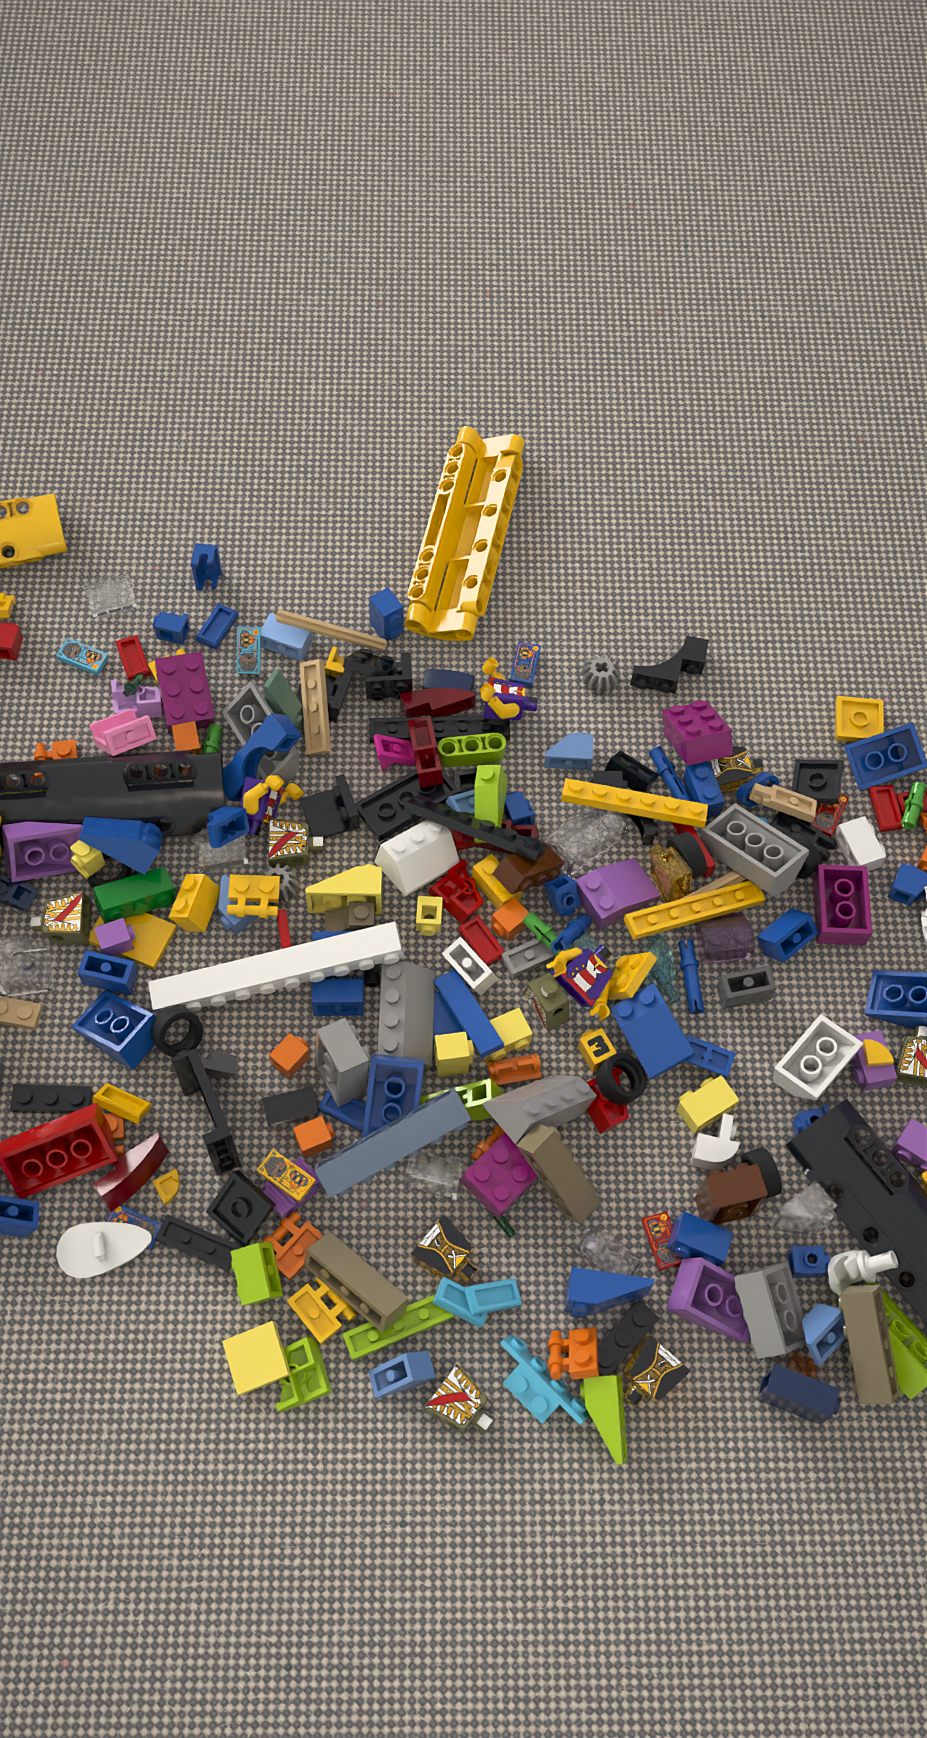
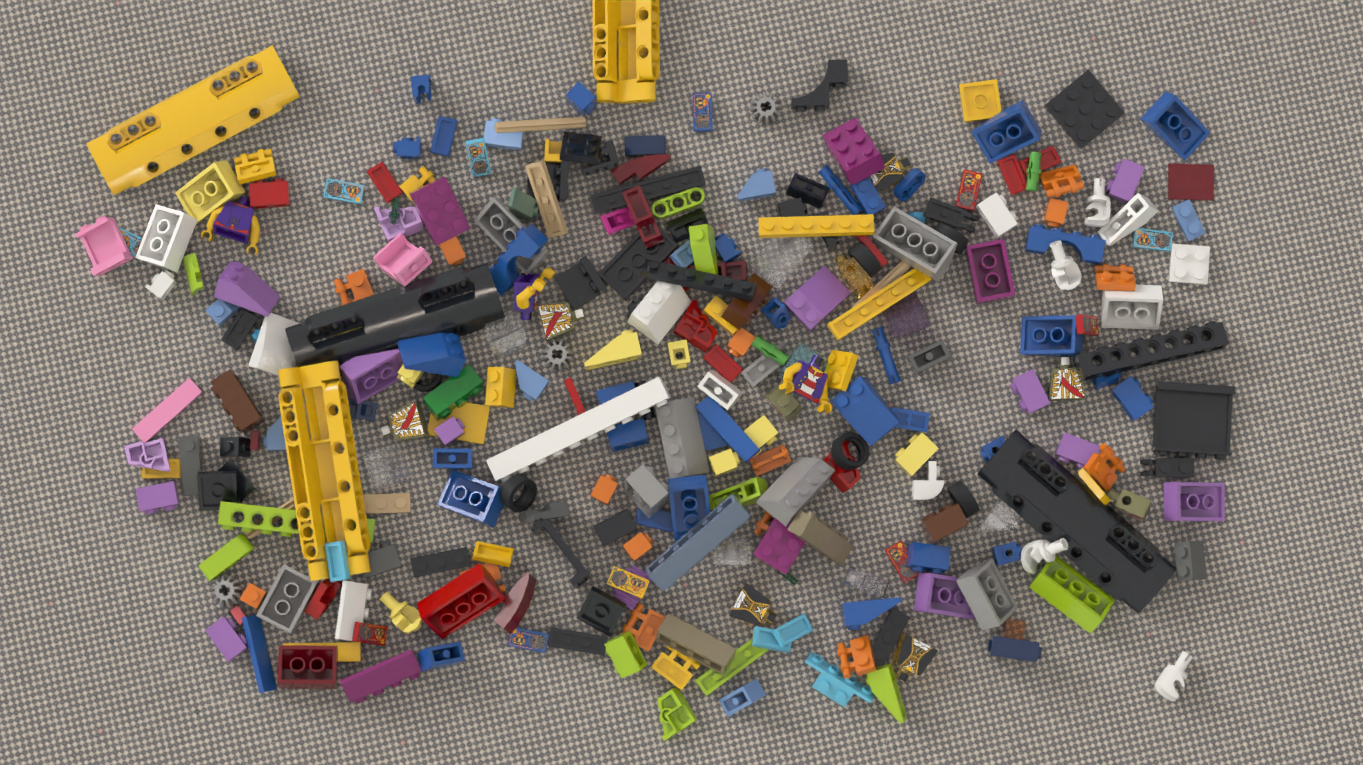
camera: 15 degrees left, 20 degrees up
(99, 1247) = (510, 660): white shield -> none
(111, 596) = (349, 129): clear slope -> none
(167, 1186) = (543, 605): yellow tile -> none
(212, 739) = (471, 249): bright green pin -> none
(227, 825) = (509, 324): blue arch -> none
(253, 889) = (543, 368): yellow plate -> none
(256, 1358) = (640, 710): light yellow tile -> none
(351, 918) = (620, 372): dark tan arch -> none
(459, 1402) = (786, 707): torso -> none
(503, 697) = (693, 151): torso -> none
(574, 930) = (792, 341): blue pin -> none
(595, 1048) = (827, 430): yellow brick -> none
(663, 969) = (861, 346): clear light blue wing -> none
(785, 801) = (933, 194): tan hinge -> none
(787, 935) = (952, 306): blue brick -> none
(816, 1059) = (989, 404): white slope -> none
(818, 779) = (955, 167): black plate -> none
(823, 1331) = (1024, 602): medium blue slope -> none
(869, 1344) = (1056, 605): dark tan brick -> none
(876, 1054) = (1032, 390): yellow tile -> none

